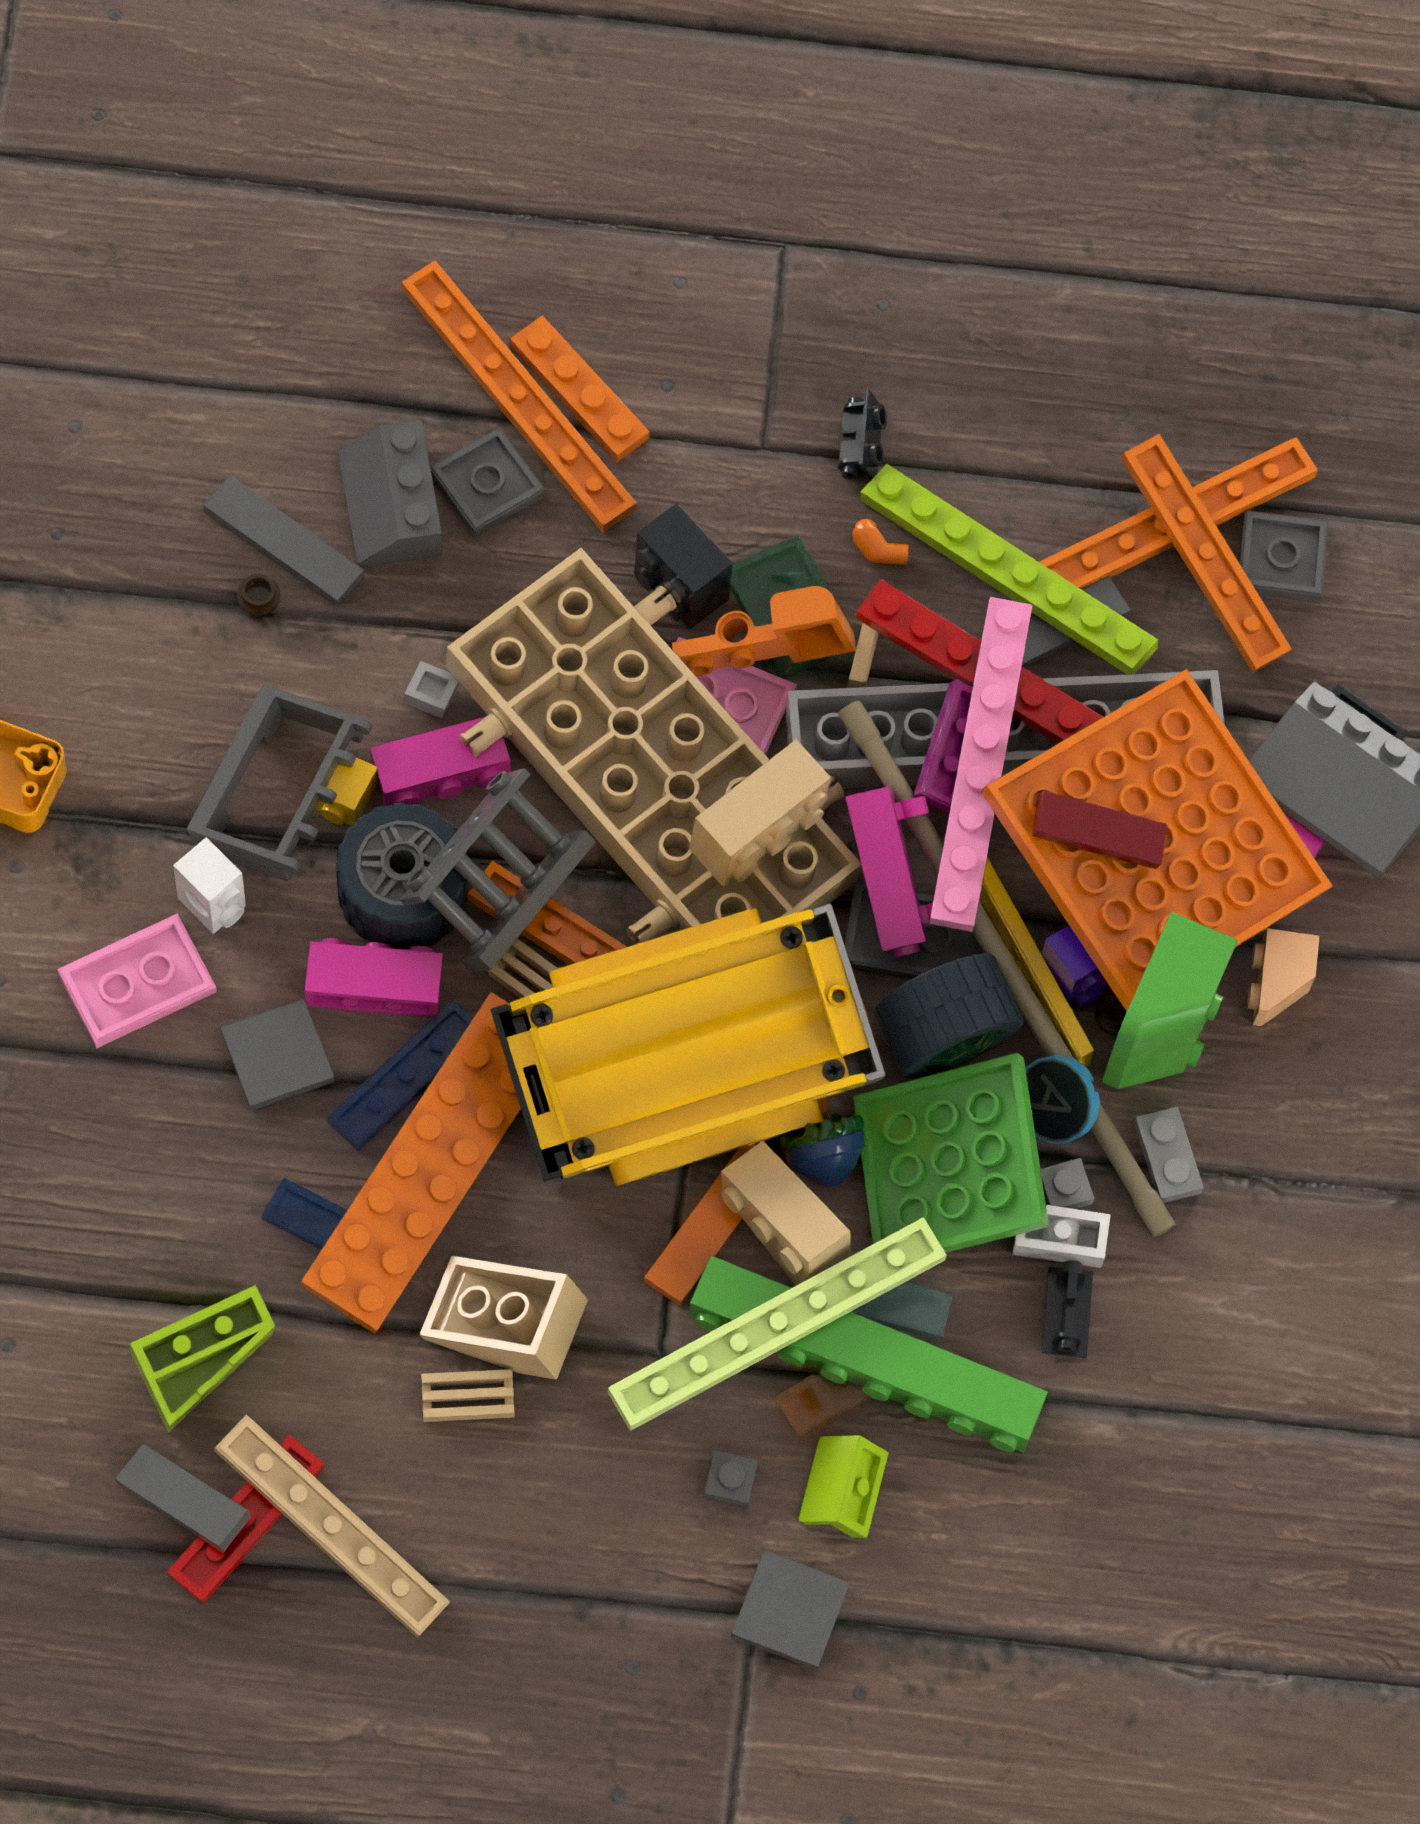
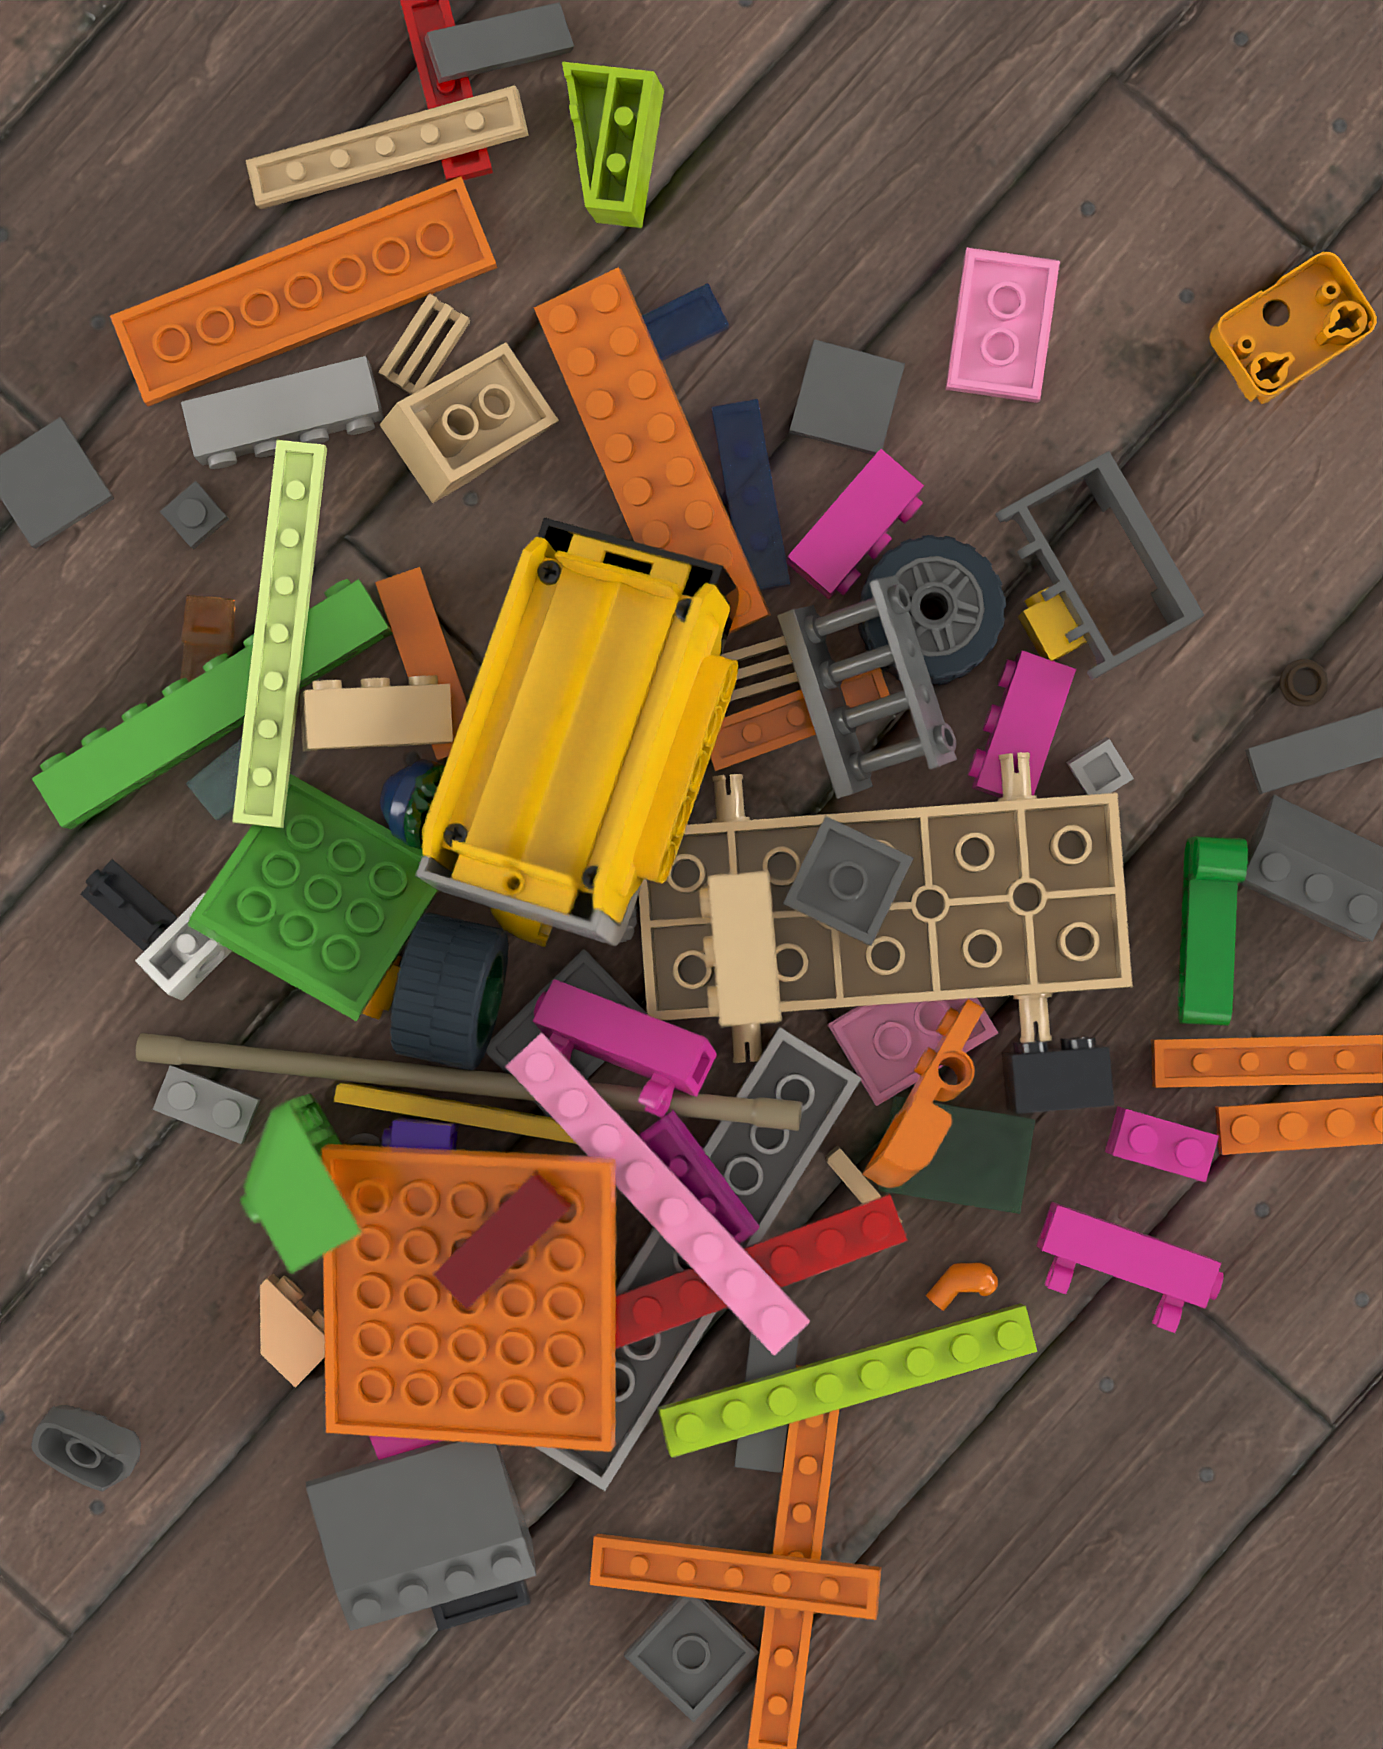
camera: 135 degrees right, 20 degrees up
(210, 886) = (1037, 433): white brick -> none
(487, 481) = (1279, 971): dark grey tile -> none
(491, 543) = (1209, 928): none -> green beam
(493, 1515) = (303, 291): none -> orange plate
(600, 1460) = (284, 408): none -> light grey brick
(653, 784) = (848, 880): none -> dark grey plate
(674, 470) = (1161, 1144): none -> dark pink brick
(771, 446) = (1131, 1257): none -> dark pink brick
(844, 1484) = (118, 602): lime panel -> none
(864, 420) = (1095, 1364): black hinge -> none
(1061, 1098) = (313, 1038): black tile -> none
(1067, 1185) = (243, 992): light grey plate -> none

